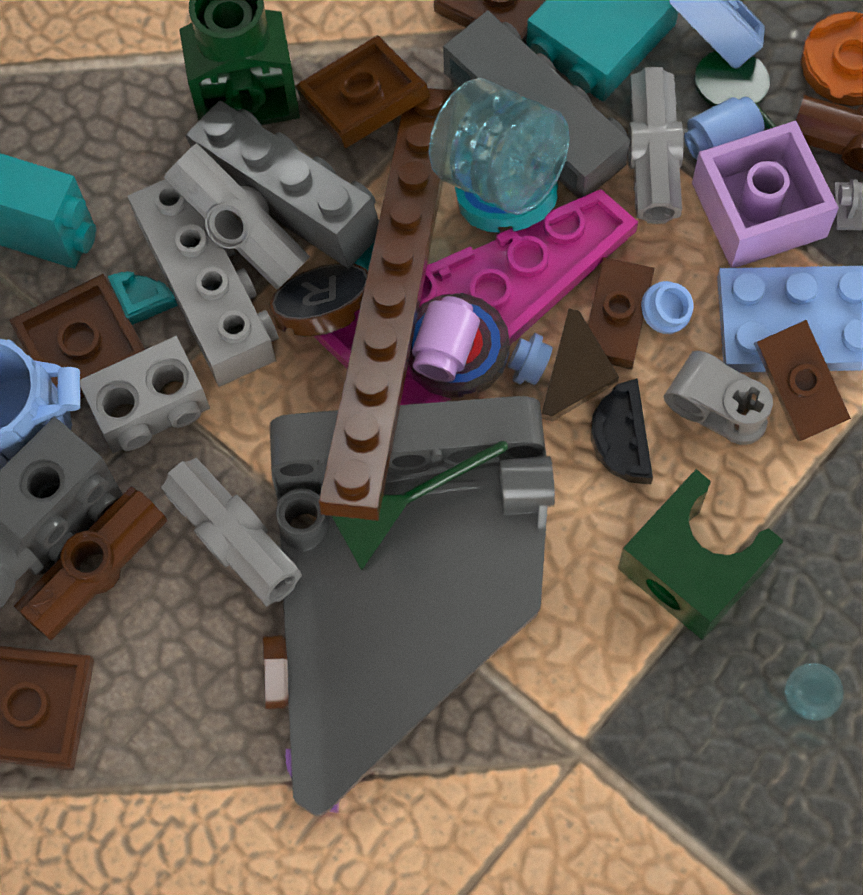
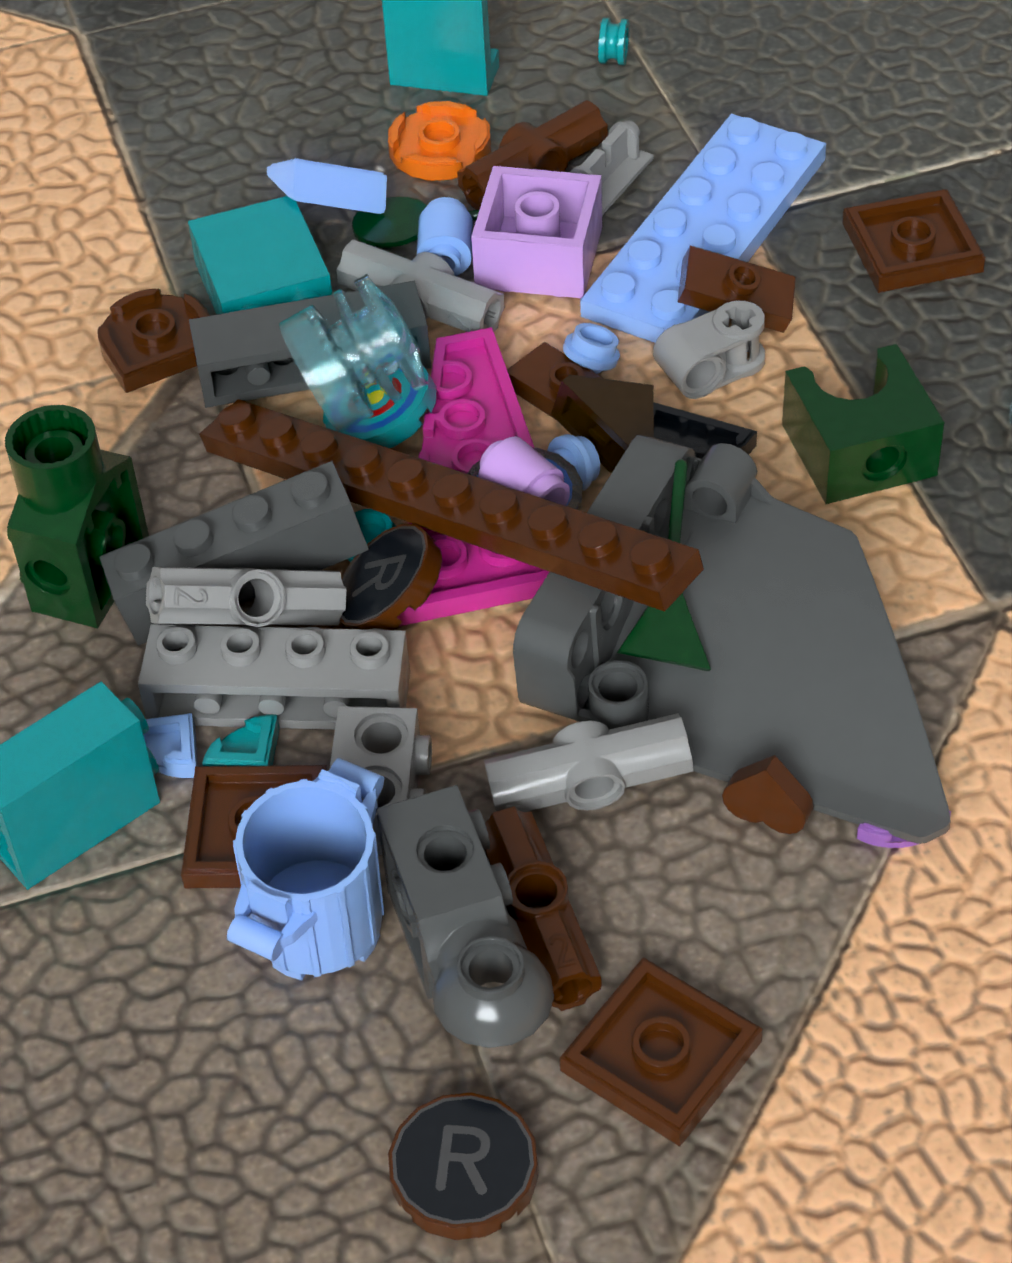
camera: 60 degrees left, 20 degrees down
(119, 244) = (173, 744): none -> light blue tile
(362, 91) = (184, 459): reddish brown tile -> none

